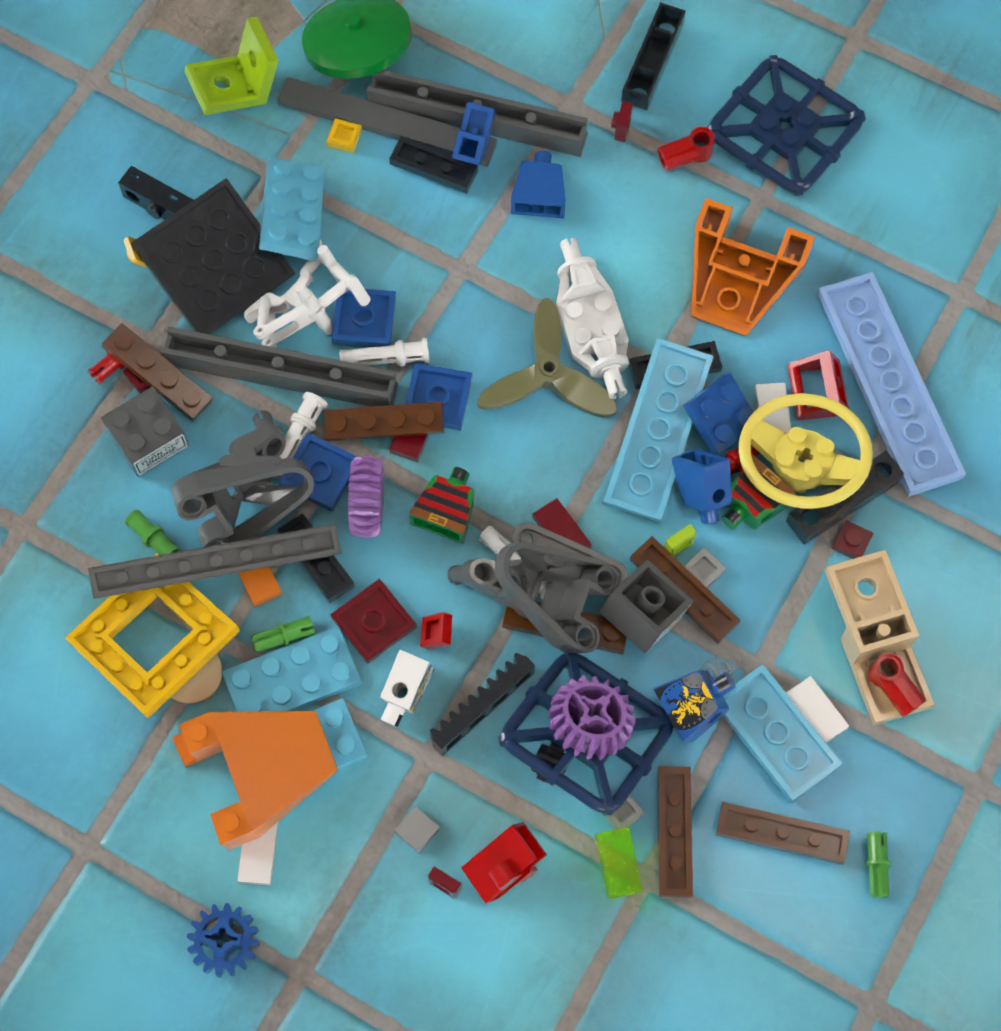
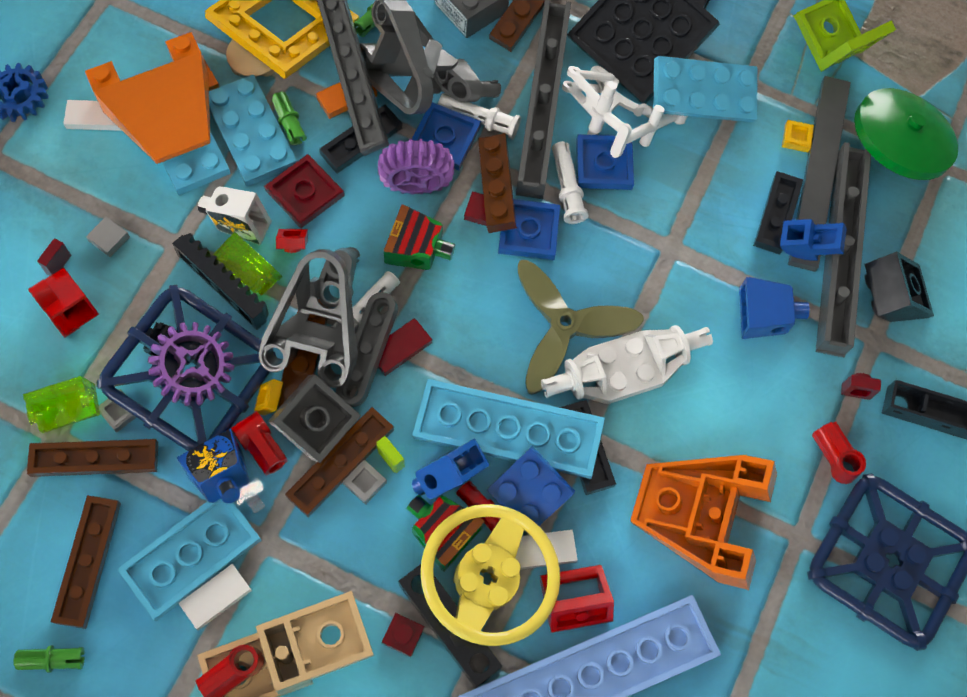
camera: 80 degrees right, 0 degrees up
(464, 677) = (247, 264): none -> clear neon green hinge
(525, 74) = (897, 288): none -> black slope
(616, 655) = (268, 397): none -> yellow tile
(660, 668) = (257, 439): none -> red piece

